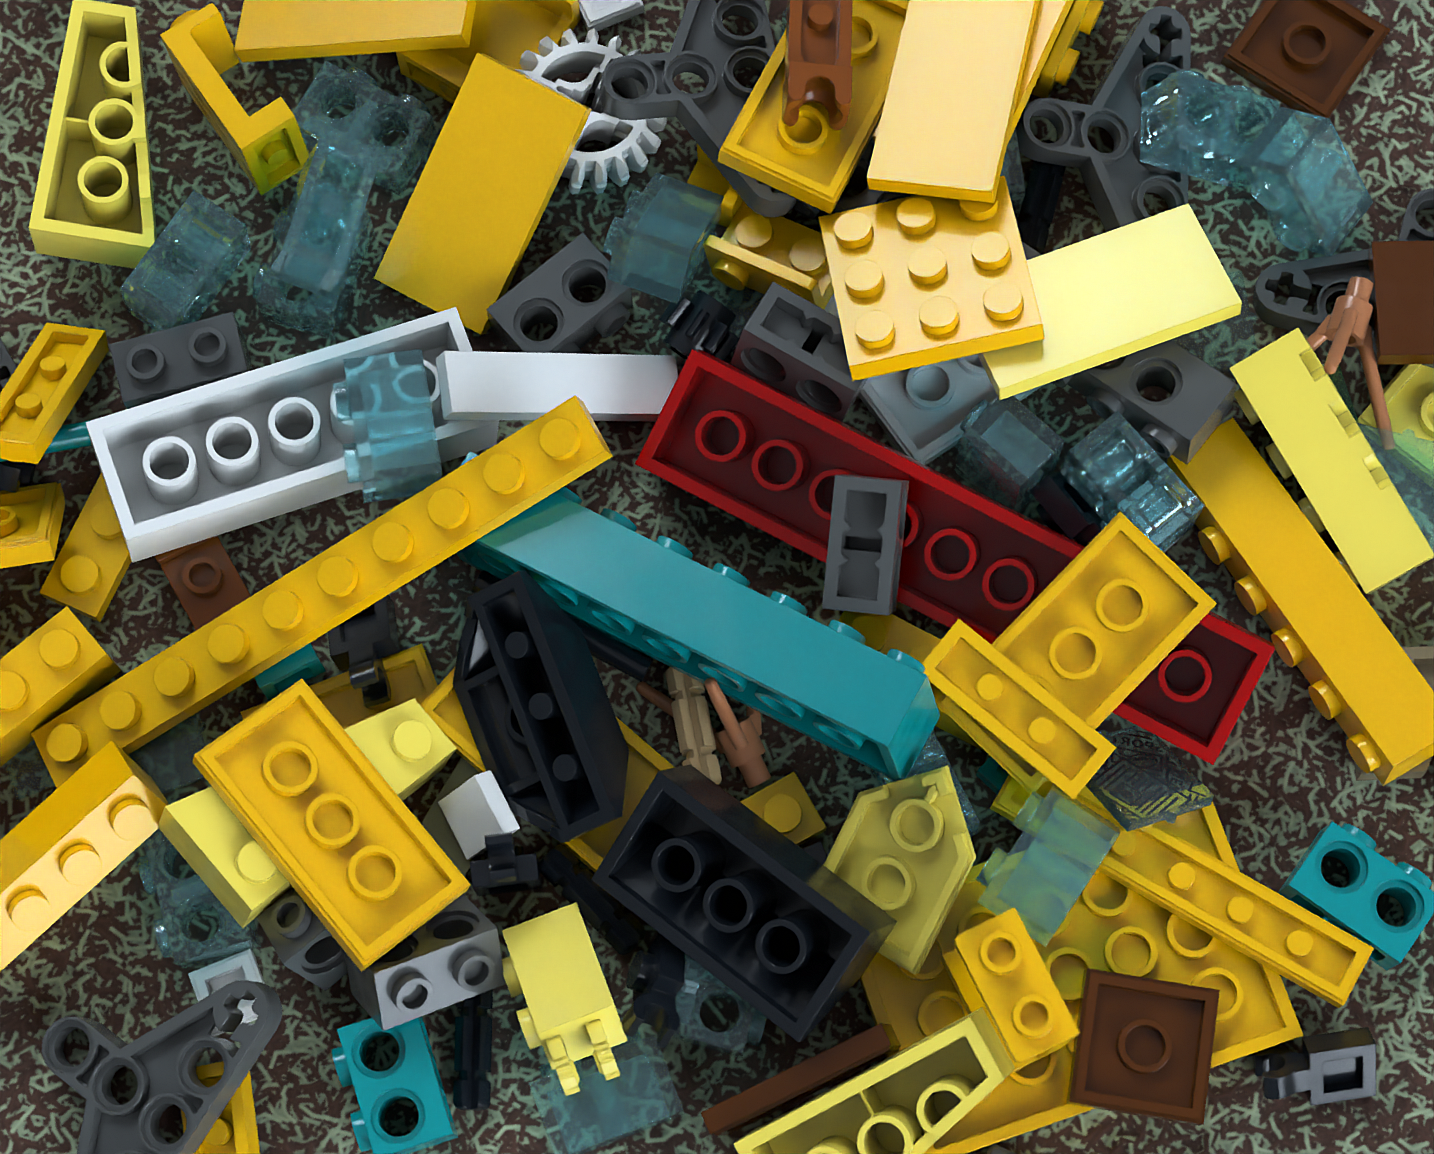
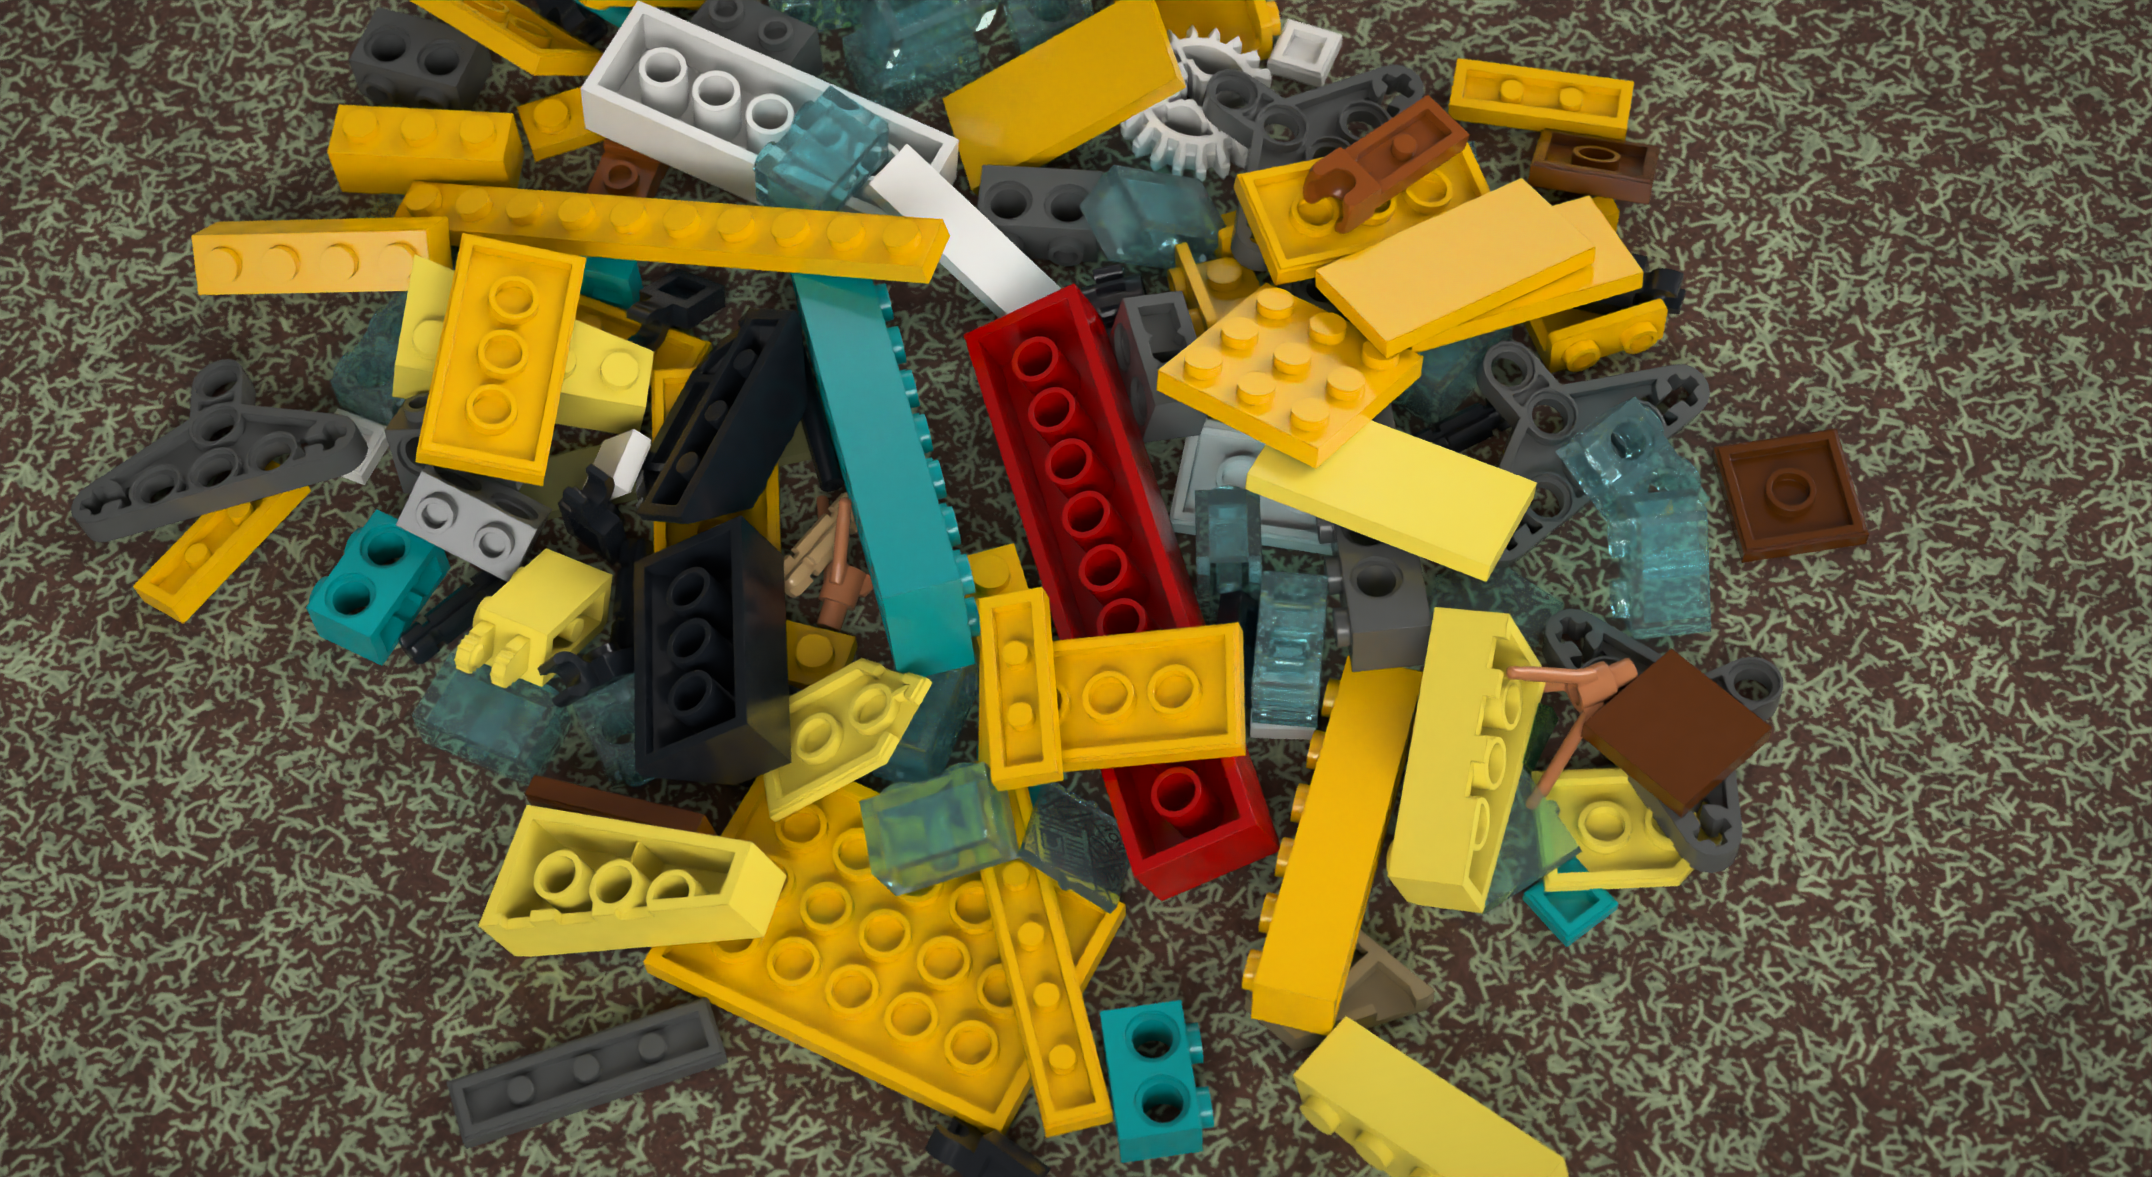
camera: 50 degrees right, 15 degrees down
(865, 544) = (1041, 494): dark grey brick -> none
(1004, 975) = (807, 867): yellow panel -> none
(1143, 1047) = (875, 1024): reddish brown tile -> none

